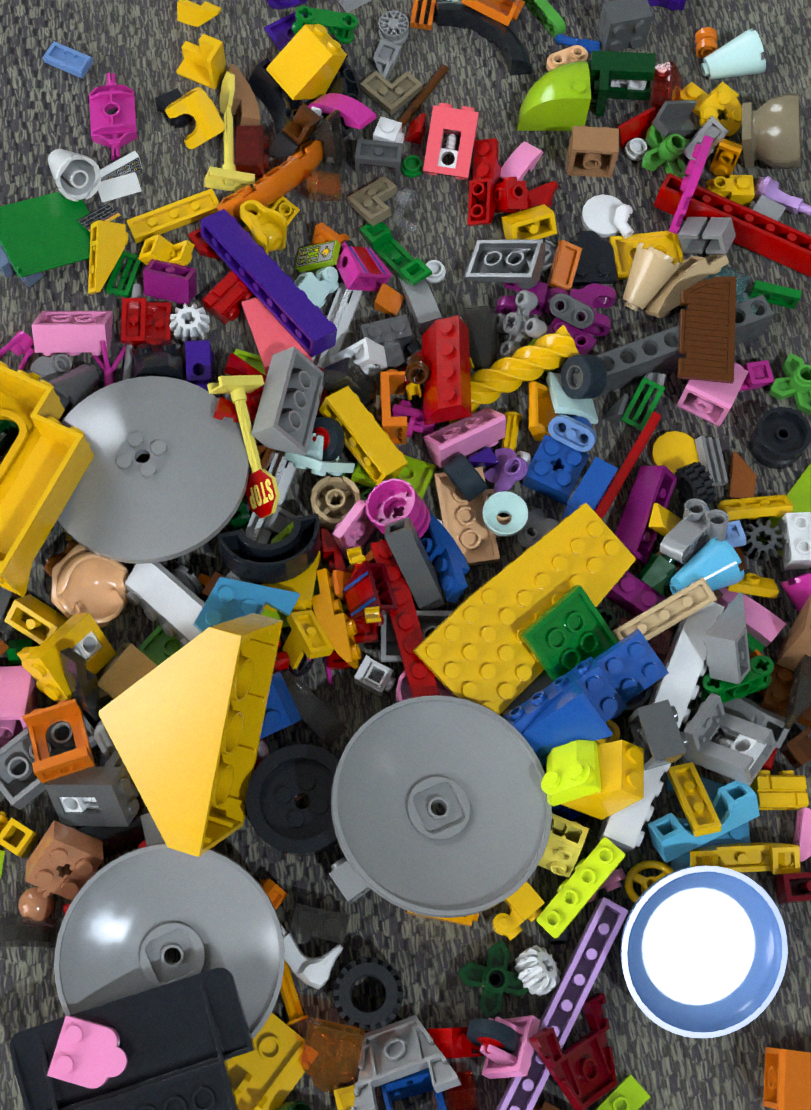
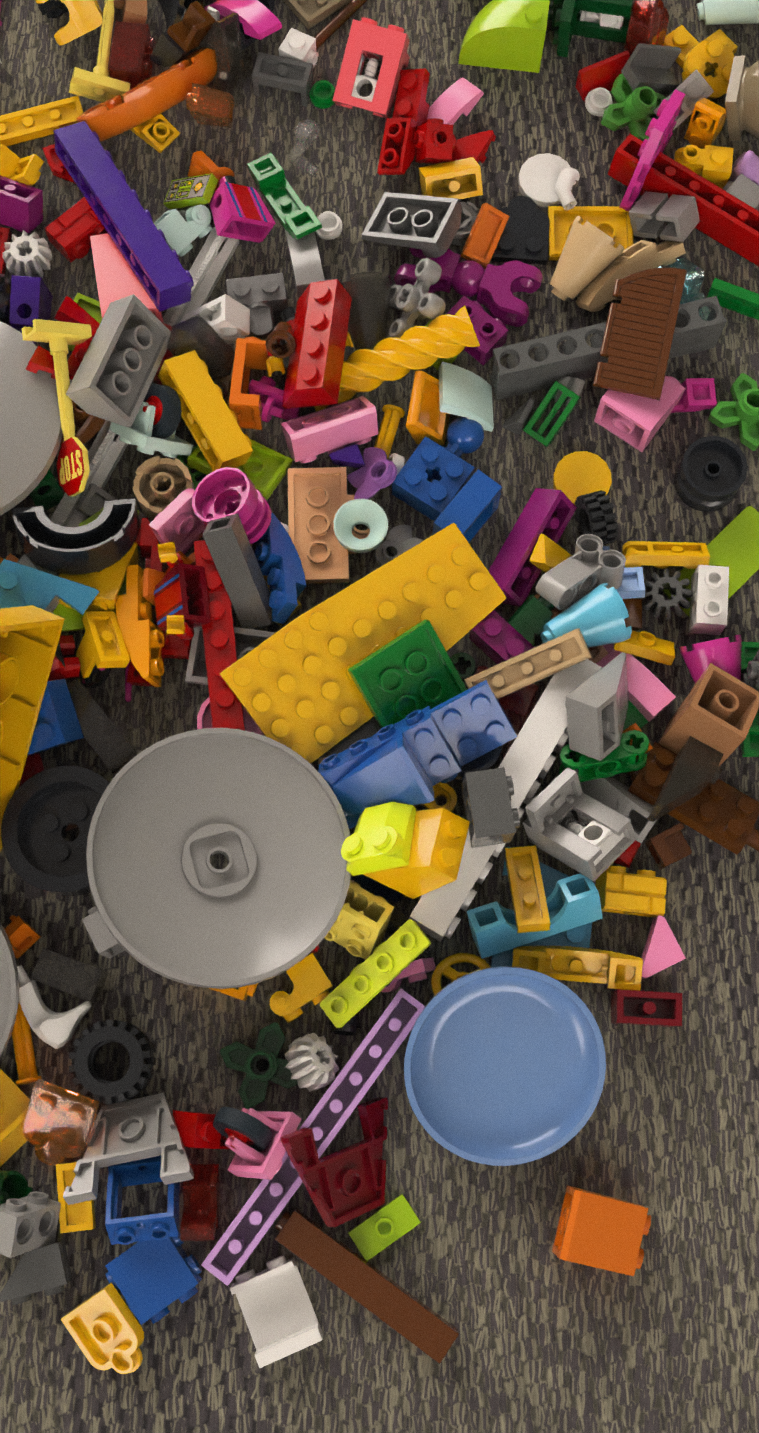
camera: 10 degrees right, 5 degrees up
(267, 227) = (131, 148): yellow piece -> none
(371, 198) = (264, 130): dark tan plate -> none
(374, 676) = (178, 698): white window -> none
(388, 301) = (267, 254): orange slope -> none
(416, 129) = (335, 50): red slope -> none
(465, 477) = (320, 476): black wheel -> none
(571, 310) = (481, 289): dark grey plate -> none
(572, 434) = (457, 441): medium blue plate -> none
(583, 376) = (480, 371): black wheel -> none
(592, 151) = (541, 98): medium nougat brick -> none
(628, 465) = (519, 488): red tile -> none
(711, 457) = (627, 493): light grey tile -> none
(742, 478) = (656, 518): dark orange slope -> none

